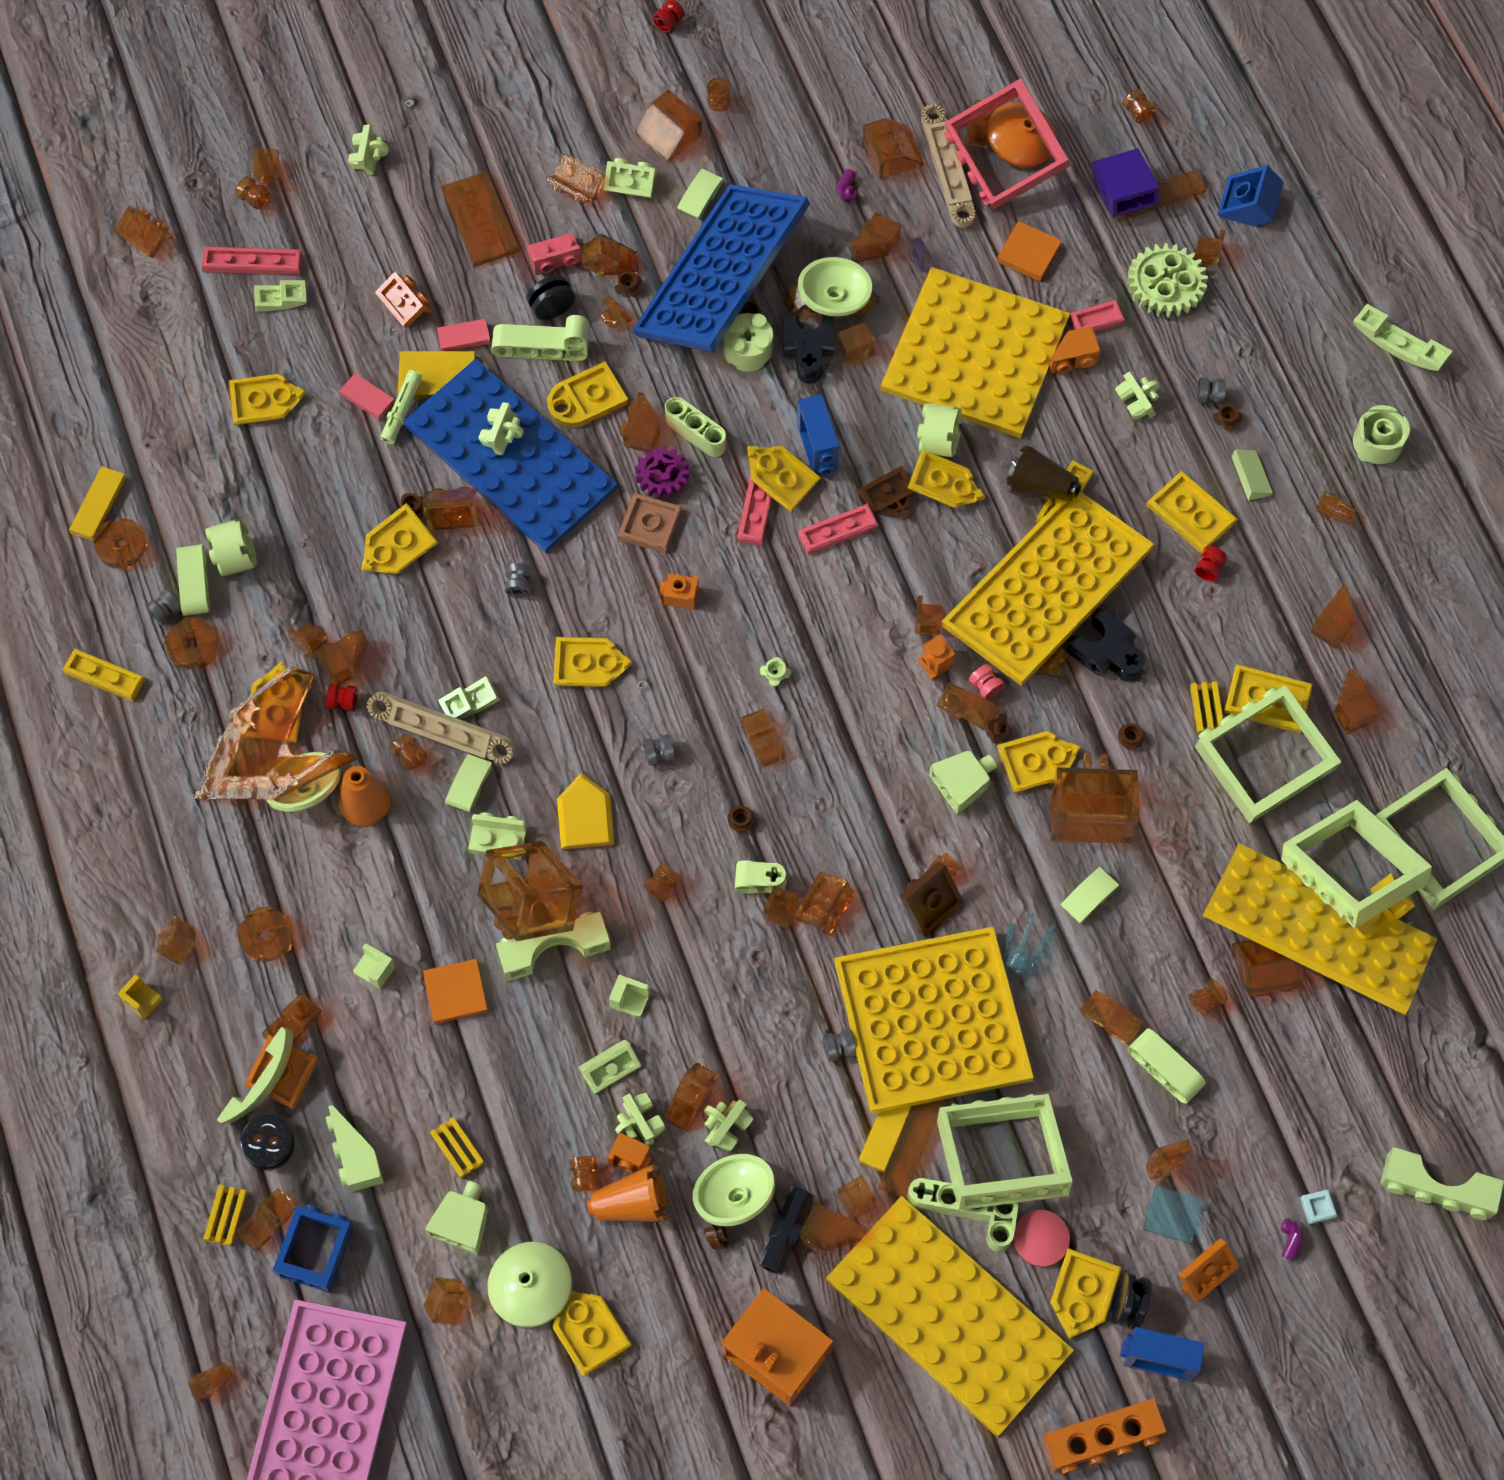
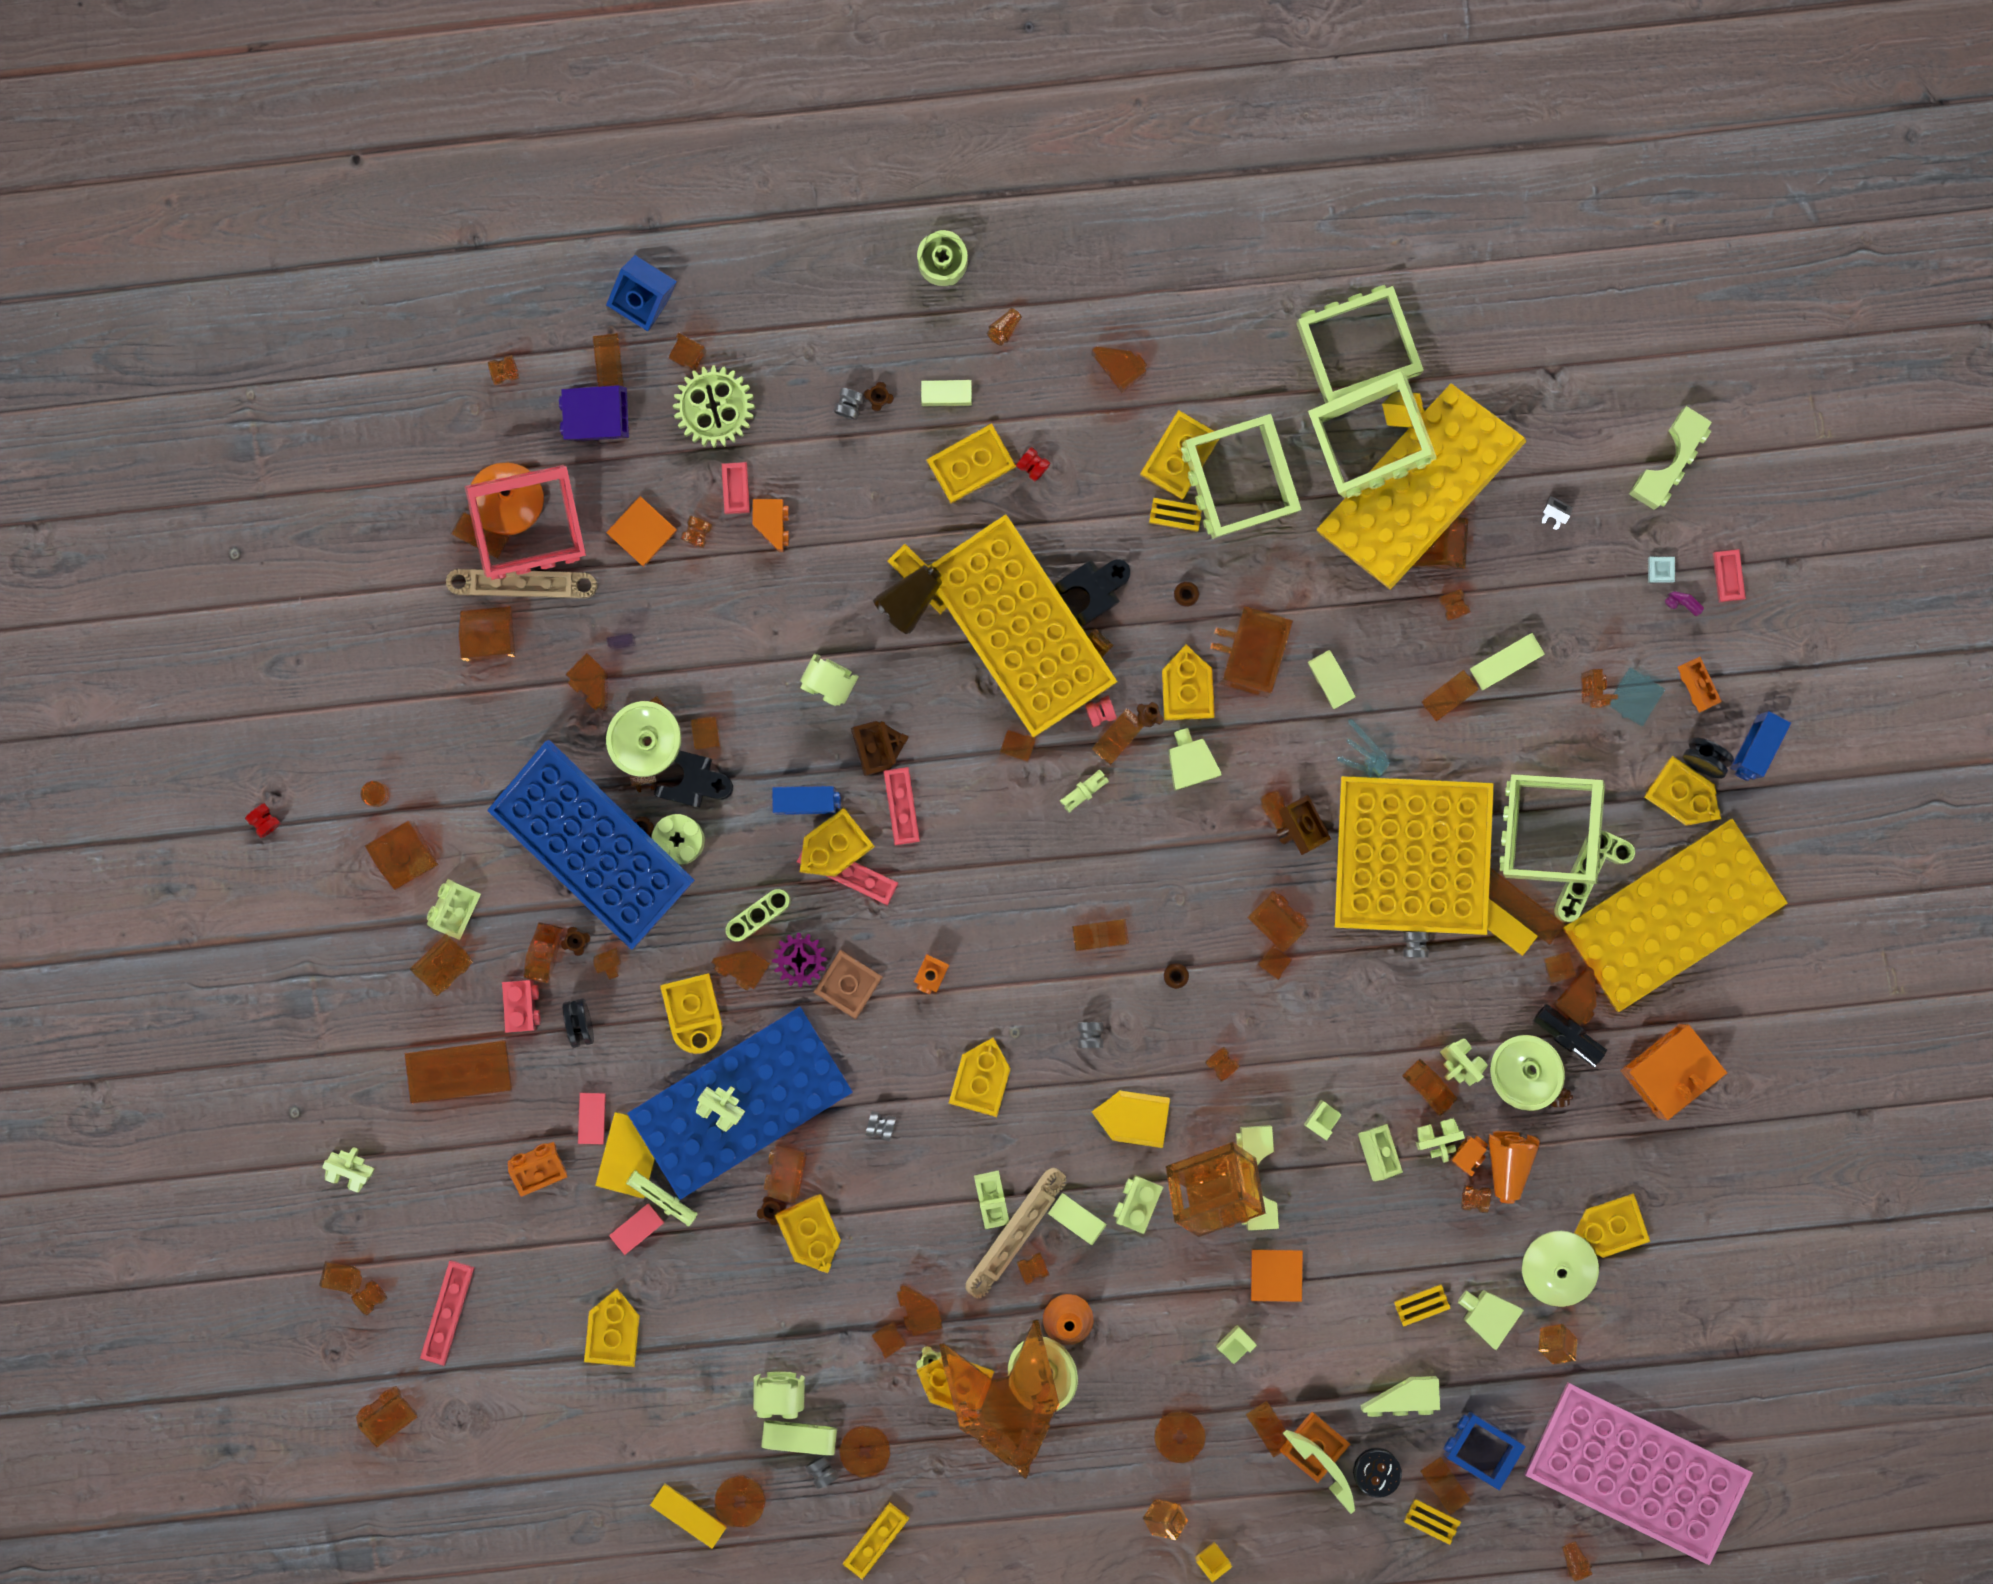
camera: 75 degrees left, 20 degrees up
(285, 296) = (497, 1292): yellowish green slope -> none
(343, 697) = (960, 1319): red wheel -> none
(543, 342) = (622, 1044): yellowish green beam -> none
(699, 193) = (489, 842): yellowish green slope -> none
(757, 876) = (1238, 979): yellowish green piece -> none
(775, 664) = (1038, 898): yellowish green plate -> none
(844, 186) = (520, 694): magenta arm -> none
(902, 687) = (1084, 791): none -> yellowish green pin
(936, 657) = (1064, 752): orange brick -> none
(944, 481) = (880, 691): yellow tile -> none
(975, 351) = (742, 618): yellow plate -> none
(1038, 292) = (694, 537): none -> clear orange wheel
(1041, 1238) = (1629, 816): coral dish -> none
(1142, 405) = (847, 474): yellowish green hips -> none
(1143, 1414) = (1800, 804): orange brick -> none
(1337, 1282) = (1729, 576): none -> coral tile
(1343, 1078) = (1557, 510): none -> tile
(1354, 705) = (1208, 380): clear orange slope -> none
(1399, 342) = (841, 201): yellowish green slope -> none

